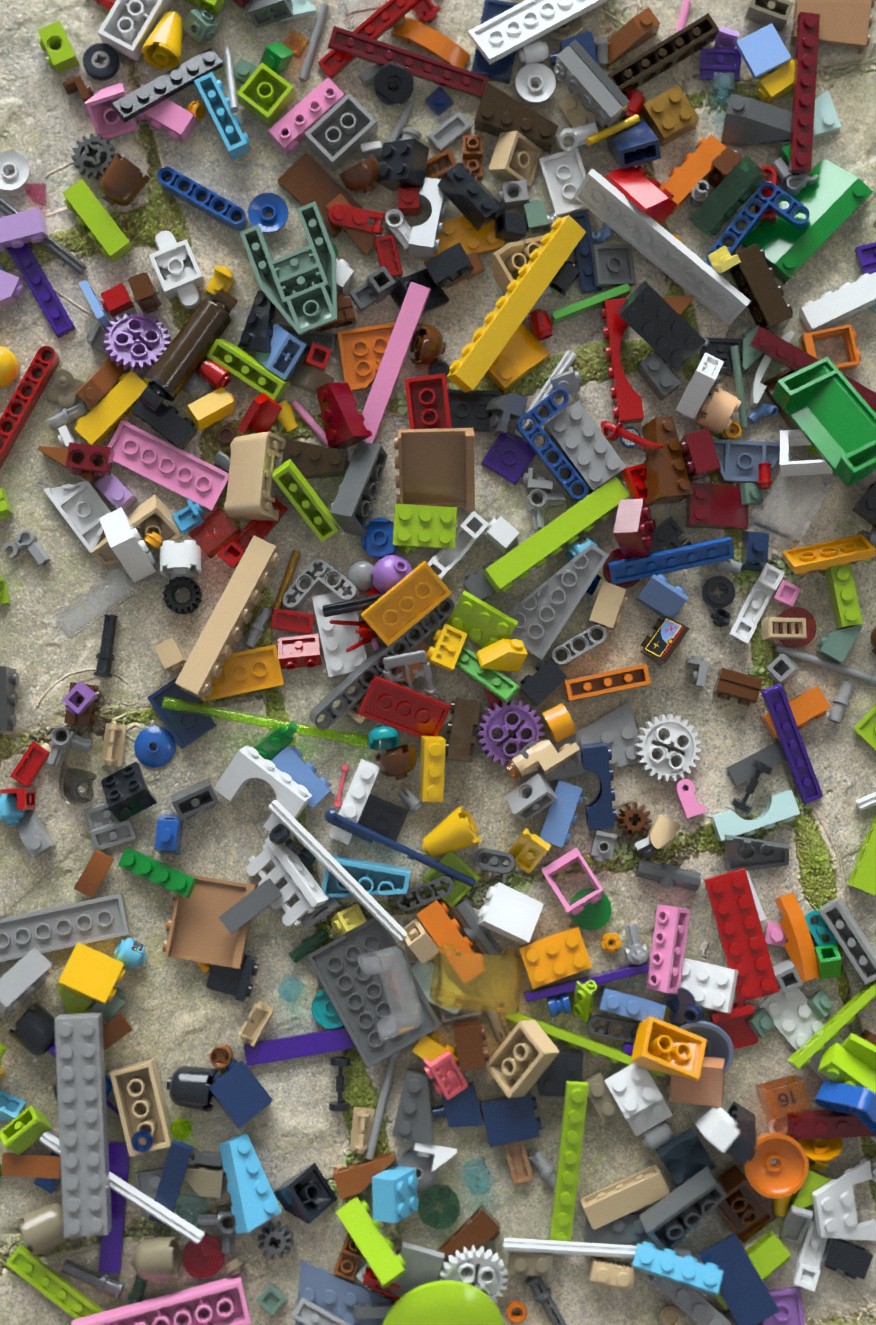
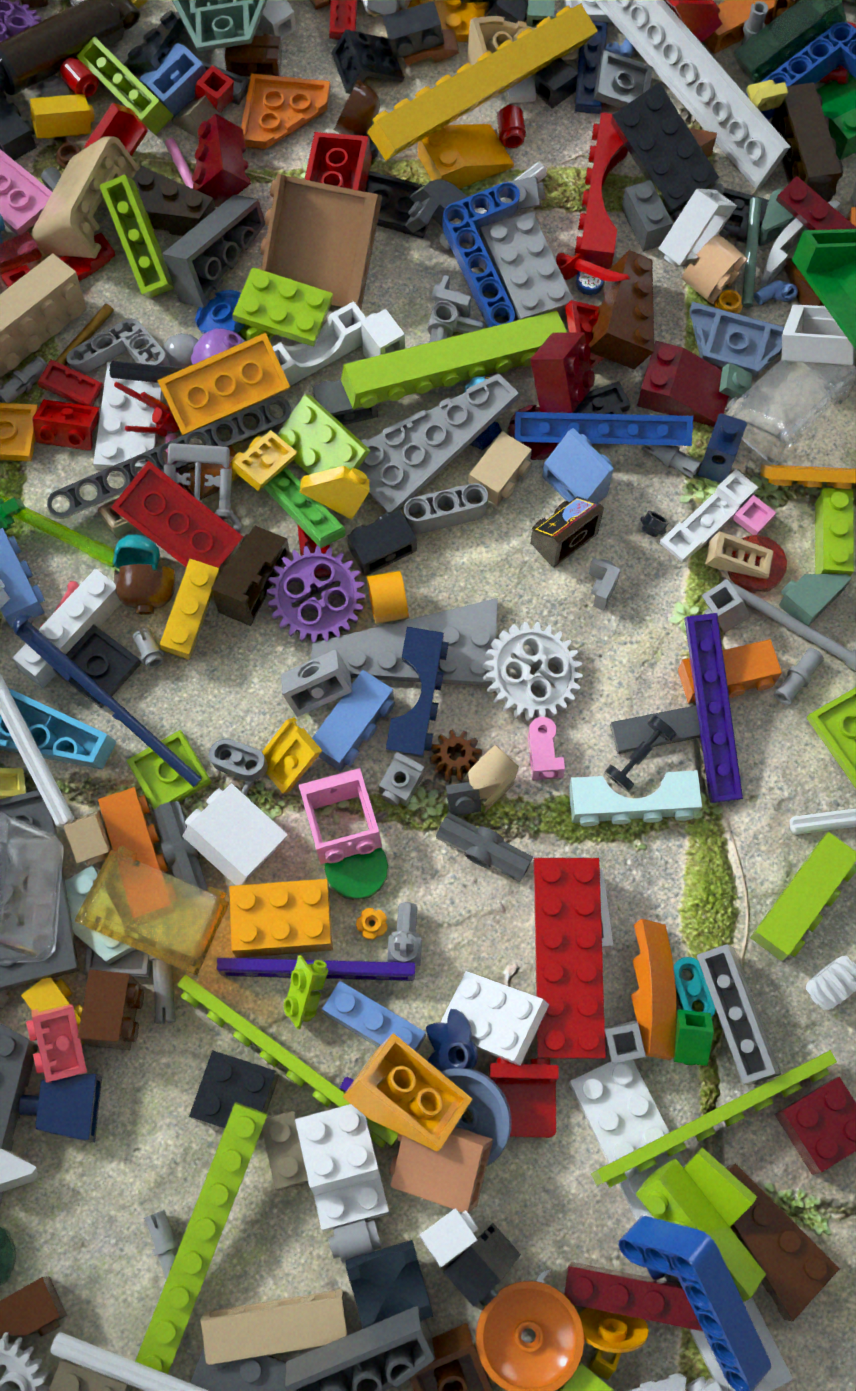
camera: 15 degrees right, 15 degrees down
(286, 416) = (153, 150): yellow cone -> none
(376, 289) = (315, 41): dark grey brick -> none
(394, 358) = (310, 113): bright pink tile -> none
(429, 884) = (111, 773): dark grey beam -> none
(452, 834) = (188, 705): yellow cone -> none
(474, 1182) = (54, 1224): clear light blue brick -> none
(509, 457) = (422, 265): dark purple tile -> none
(510, 1119) = (136, 1146): dark blue brick -> none
(518, 1162) = (126, 1219): medium nougat plate -> none
(522, 1058) = (179, 1048): tan brick -> none
(540, 755) = (349, 631): tan plate -> none
(559, 1004) = (265, 992): blue wheel -> none
(589, 304) = (568, 118): bright green tile -> none
(607, 682) = (470, 562): orange brick -> none
(626, 1034) = (359, 1058): dark grey beam -> none
(668, 948) = (453, 951): bright pink brick -> none
(699, 454) = (677, 309): dark red brick -> none
(723, 584) = (670, 487): black gear -> none
(737, 686) = (654, 616): reddish brown brick -> none
(754, 853) = (621, 848): dark grey wing -> none
(760, 1022) = (566, 1105): sand green plate -> none
(764, 477) = (757, 366): red pin -> none
(774, 934) = (621, 980): bright pink plate -> none
(783, 1096) = (571, 1228): clear orange brick -> none
(820, 1004) = (666, 1103): sand green plate -> none

